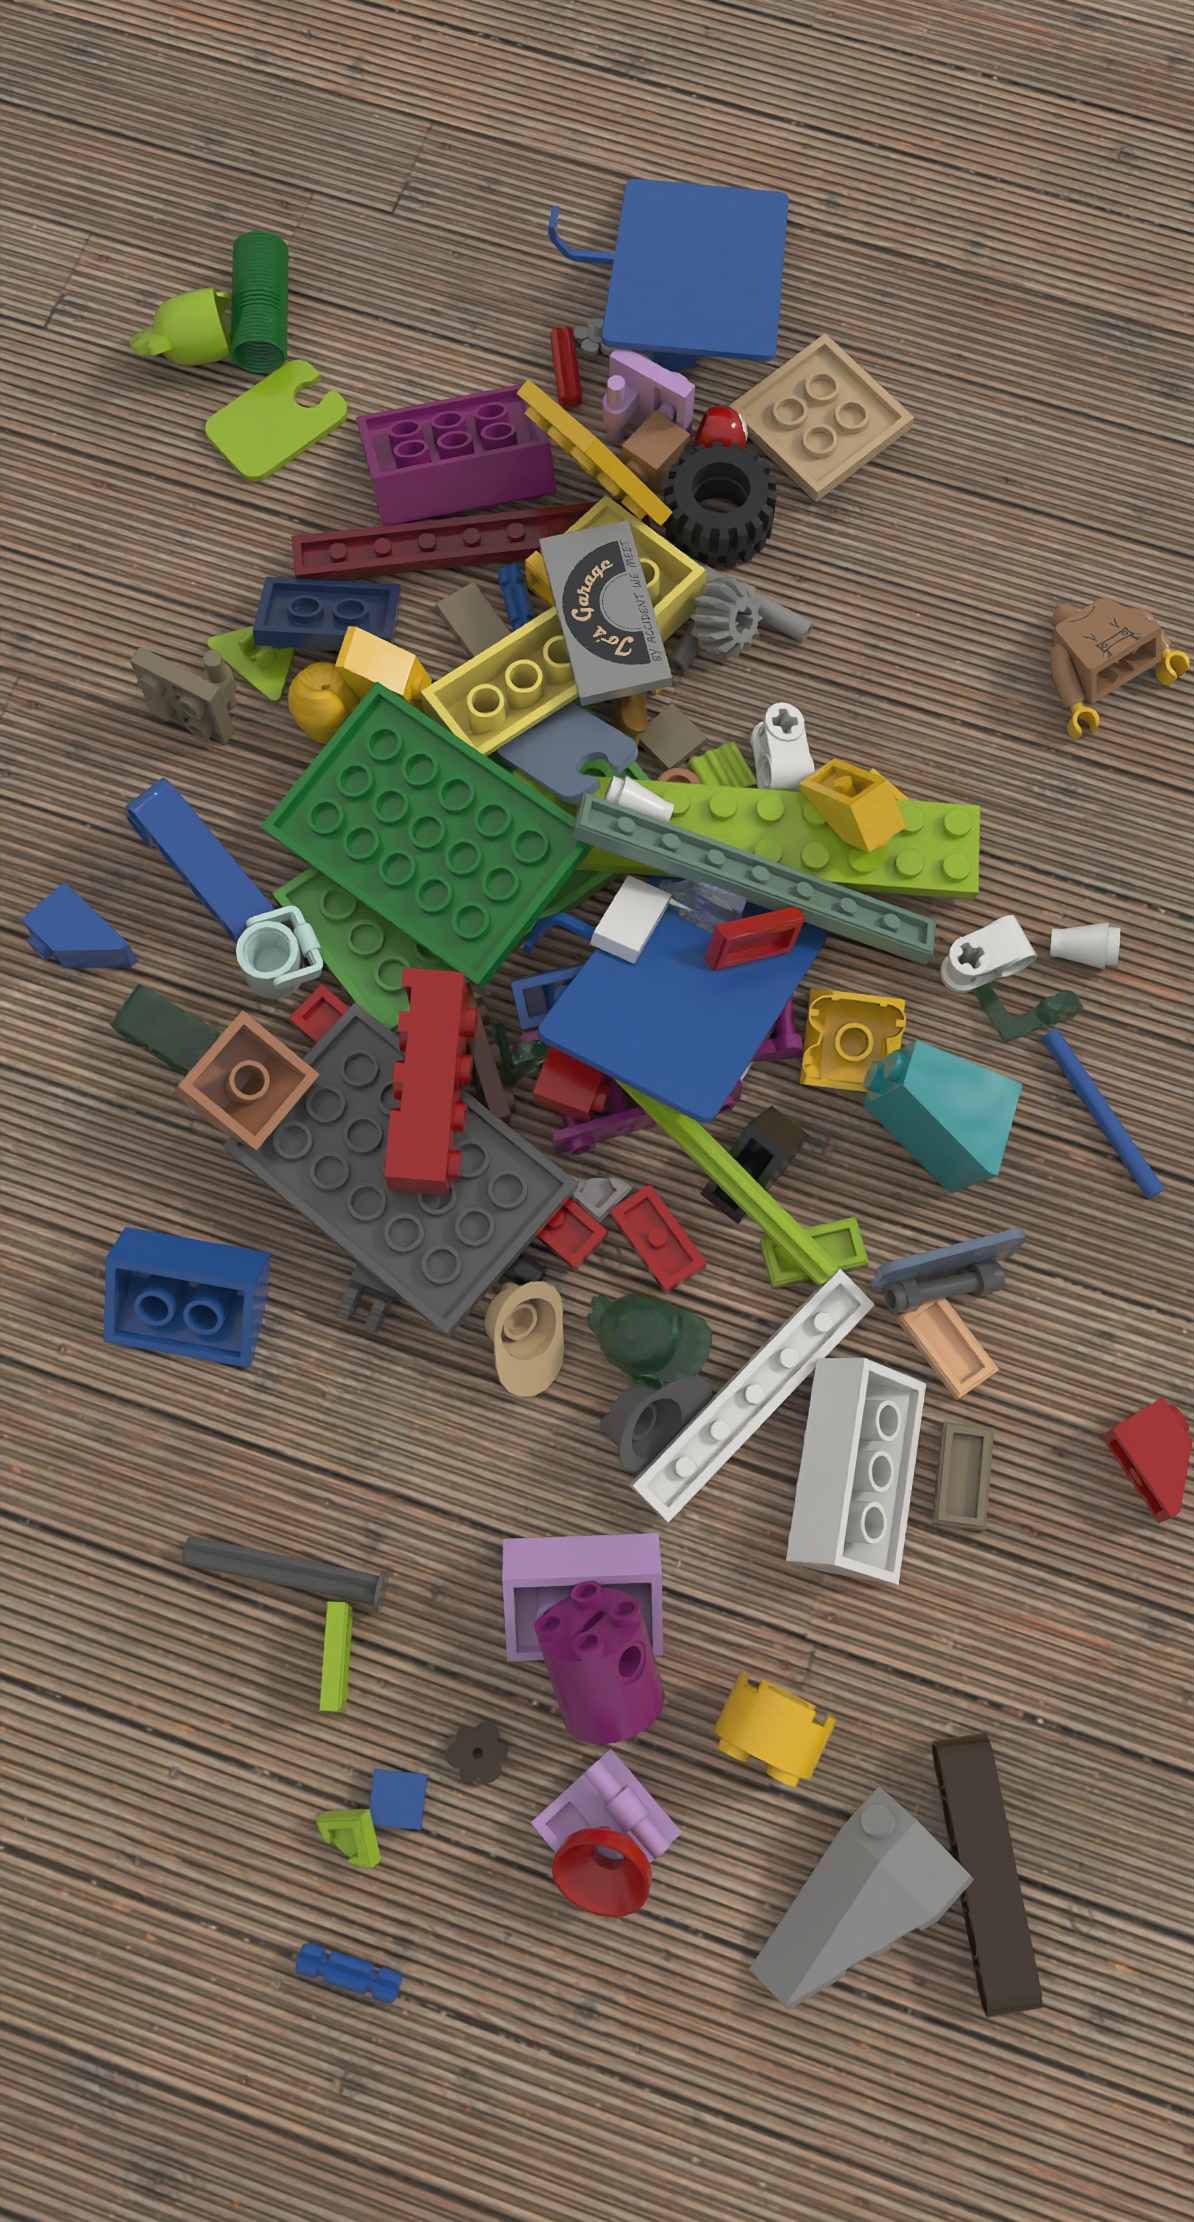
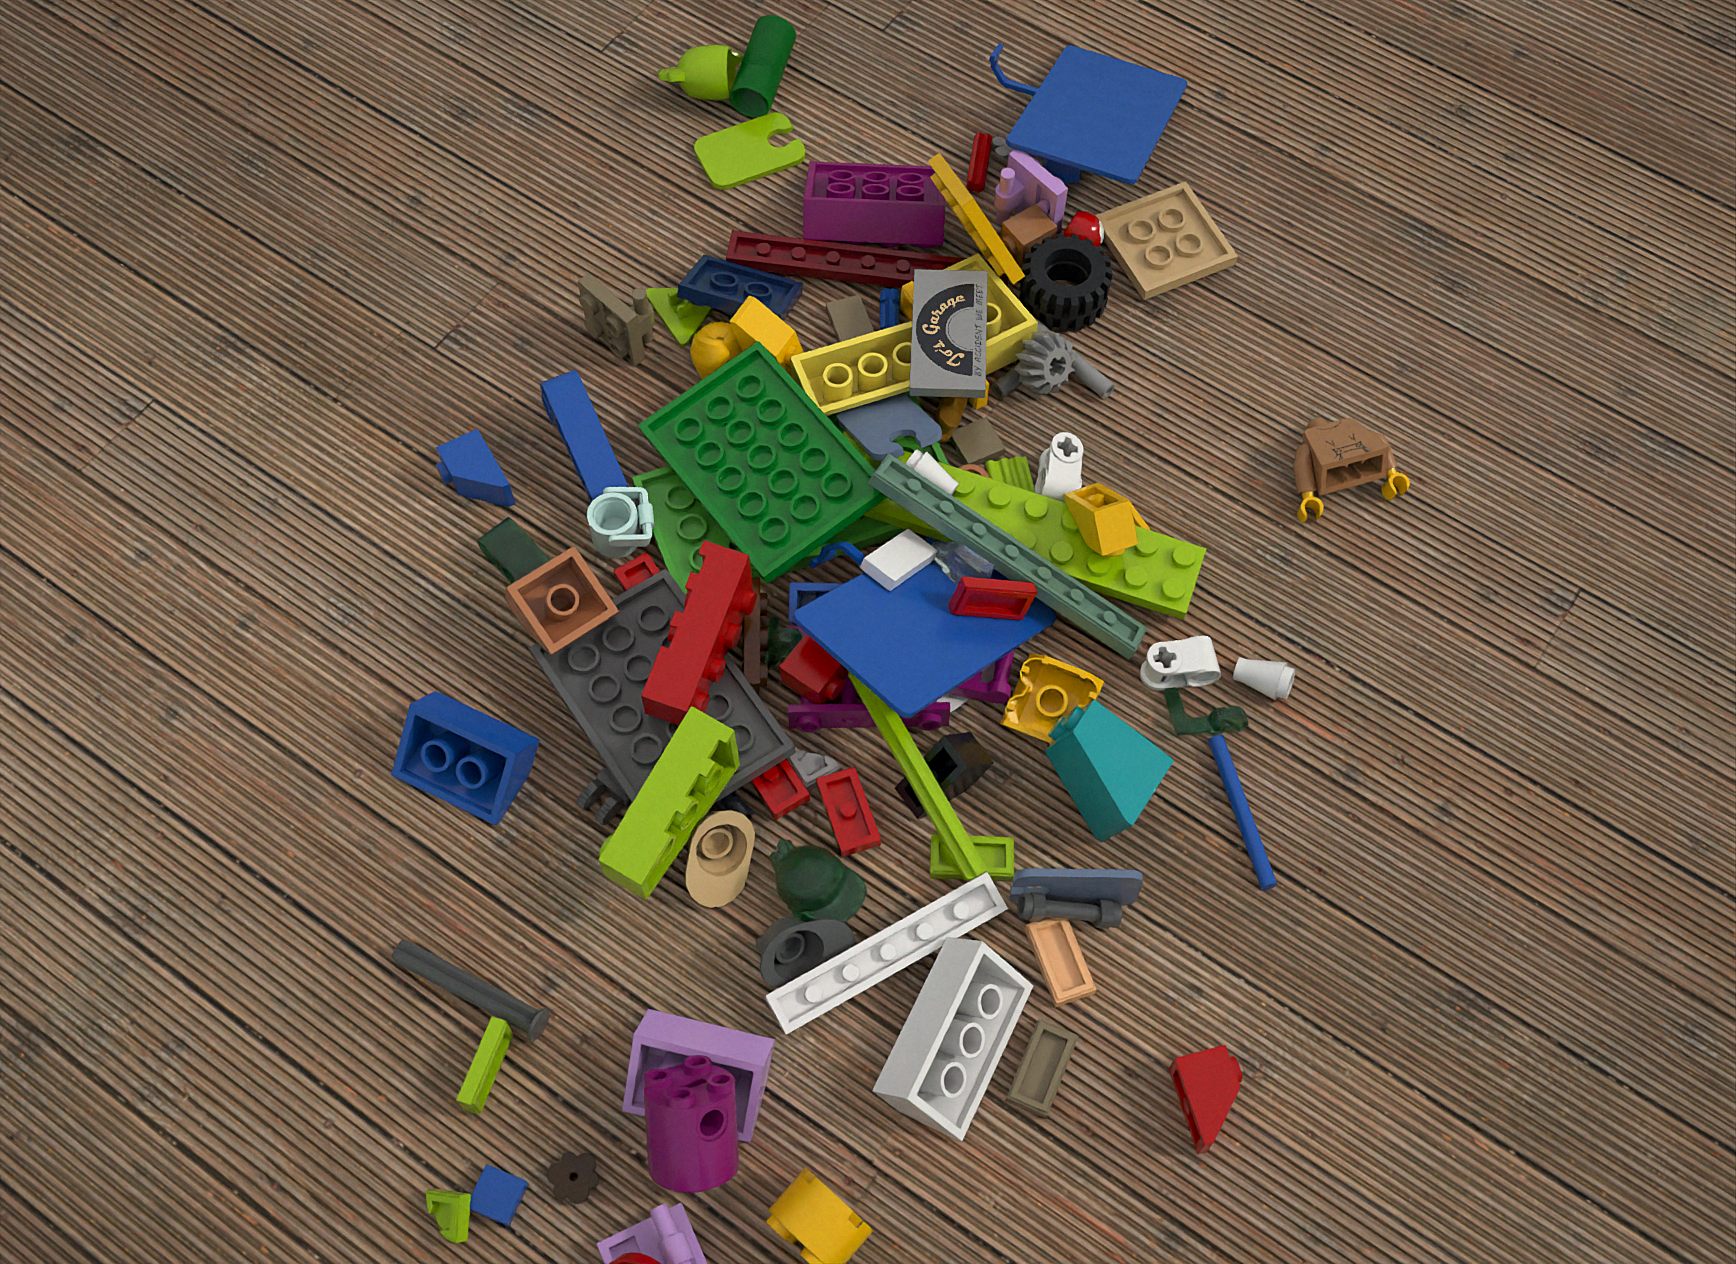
camera: 15 degrees right, 10 degrees down
(459, 1298) = (671, 803): none -> lime wedge

